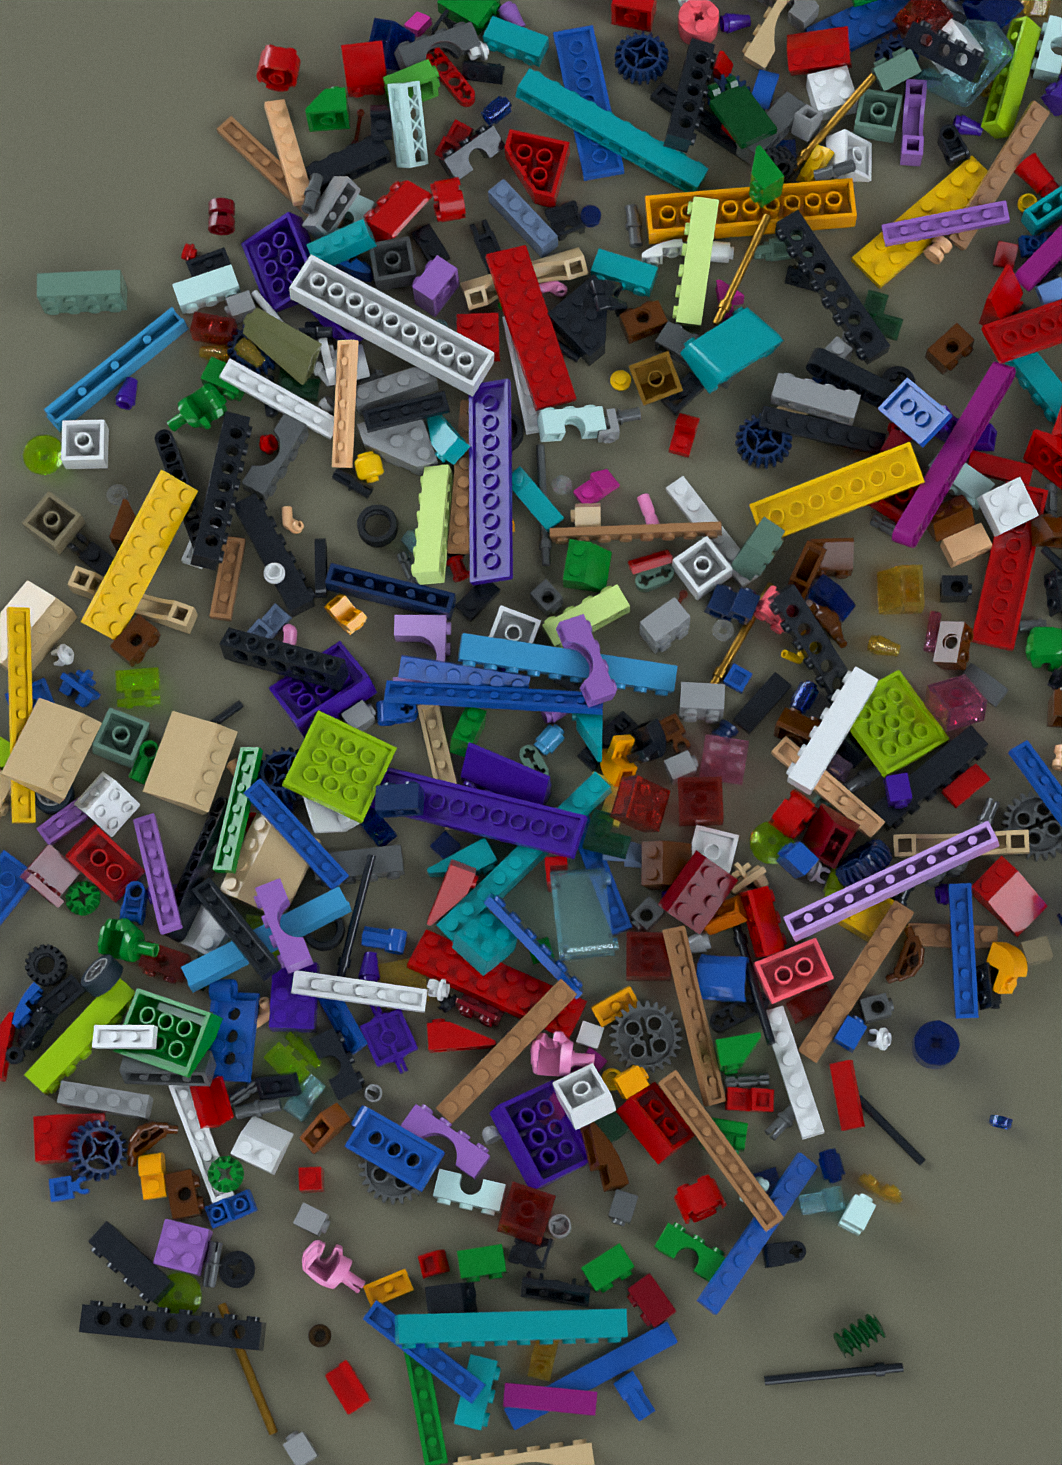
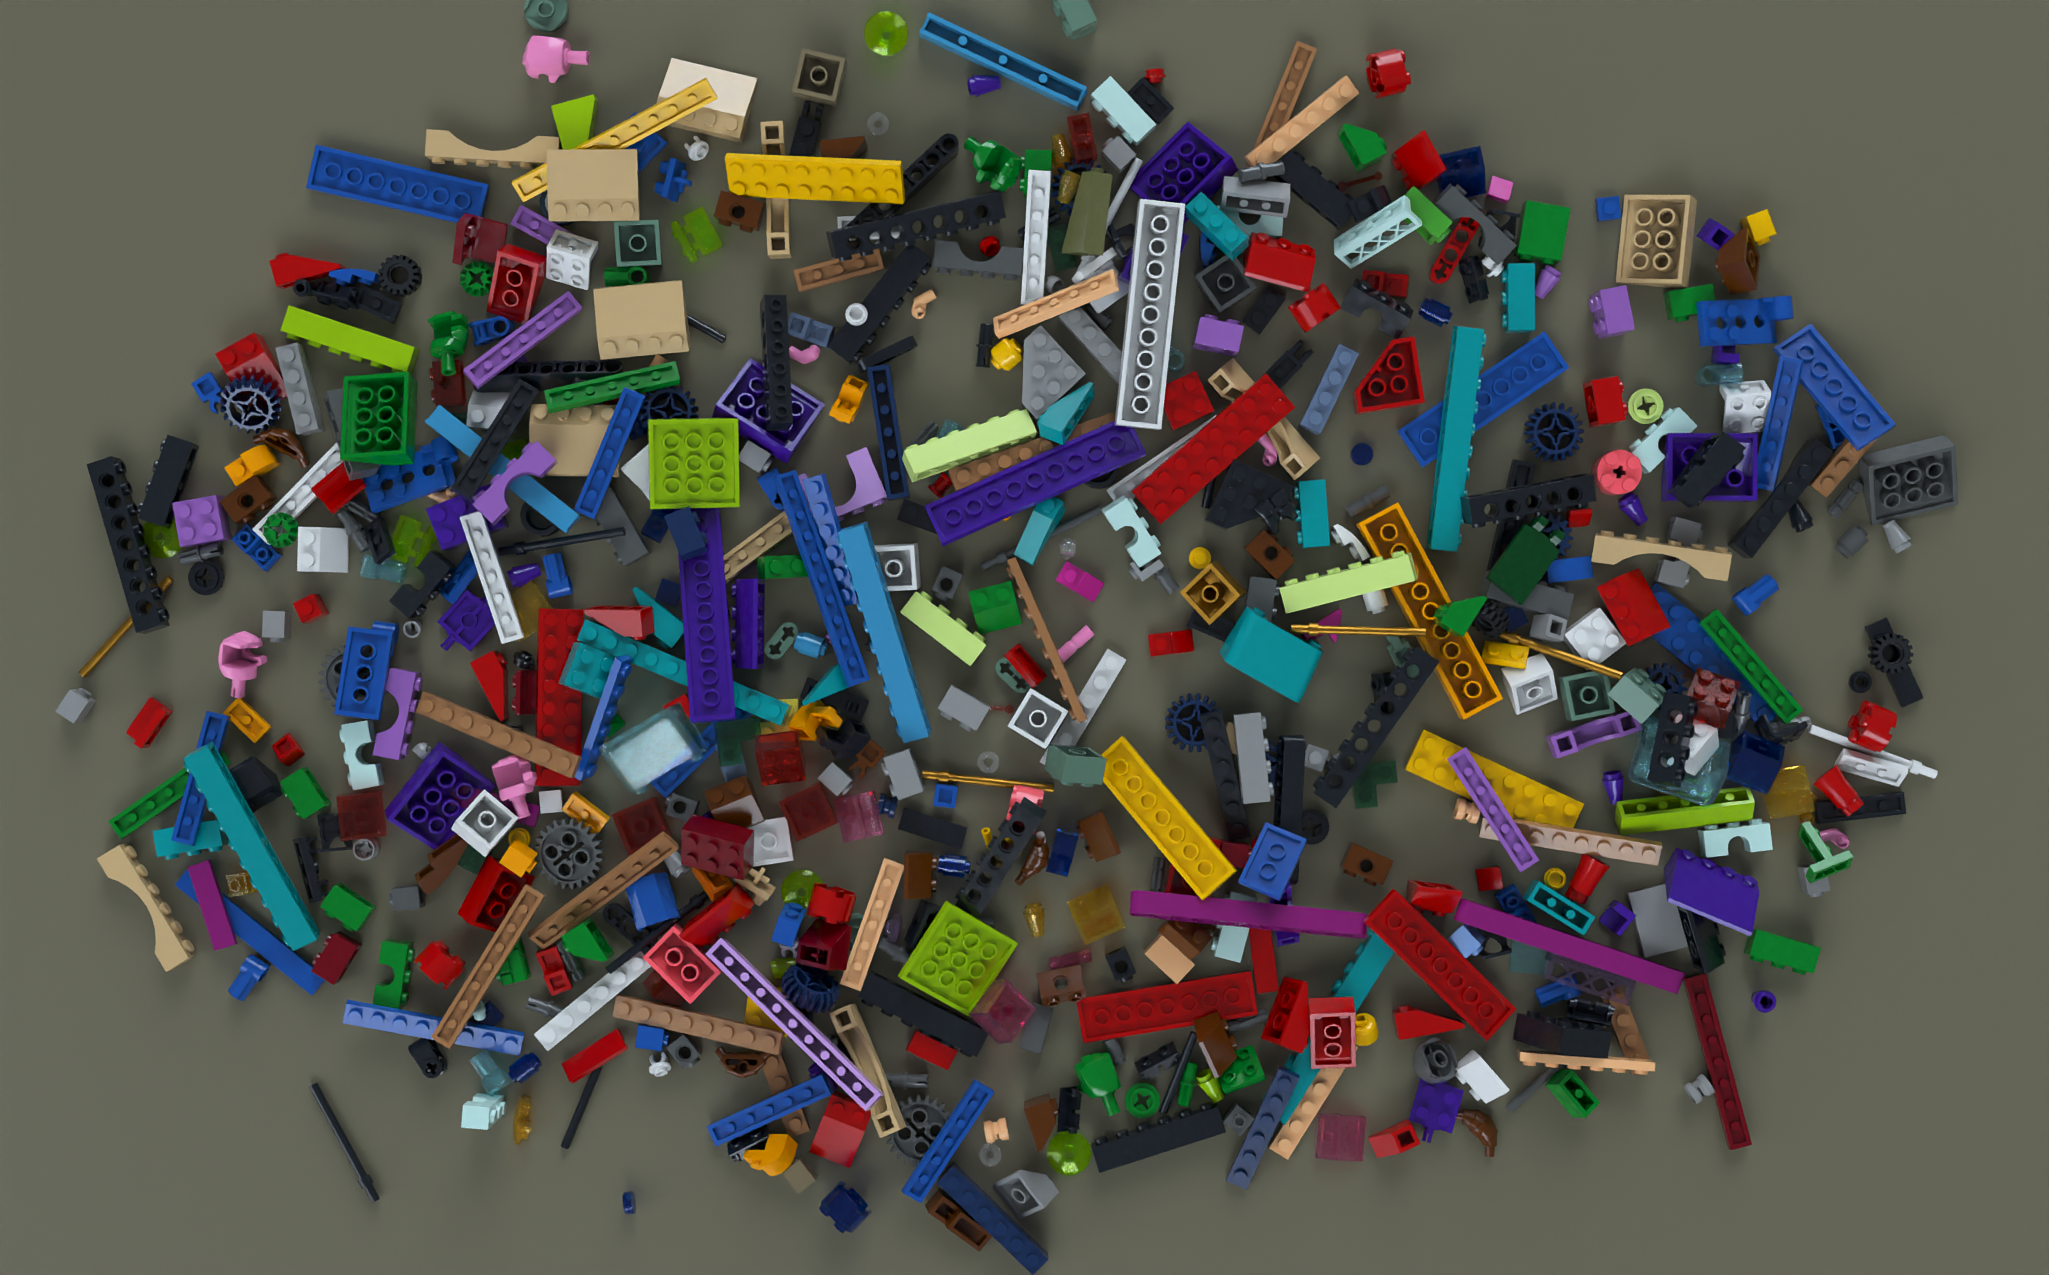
camera: 60 degrees right, 15 degrees up
(85, 444) = (911, 69): white brick -> none
(101, 975) = (408, 332): black wheel -> none
(125, 1036) = (356, 383): white plate -> none
(221, 216) = (1212, 87): dark red wheel -> none
(312, 1335) = (174, 677): dark brown plate -> none
(325, 1127) = (363, 600): dark orange slope -> none
(377, 510) = (944, 374): black tyre -> none
(406, 411) = (1070, 367): black tile -> none
(438, 989) = (527, 647): white plate -> none
(563, 216) = (1350, 428): black piece -> none
(577, 635) = (869, 673): medium lavender arch -> none
(586, 515) = (1045, 585): tan brick -> none
(728, 604) = (1013, 762): dark blue brick -> none
(807, 567) = (1070, 819): reddish brown slope -> none
(832, 730) = (917, 911): white brick -> none
(834, 170) = (1502, 678): dark grey axle -> none
(859, 1335) = (384, 1153): dark green piece -> none
(898, 790) = (891, 992): dark purple brick -> none
(937, 1032) = (661, 1114): clear blue brick -> none
(952, 149) = (1584, 782): black piece -> none
(1007, 506) = (1218, 984): white brick -> none

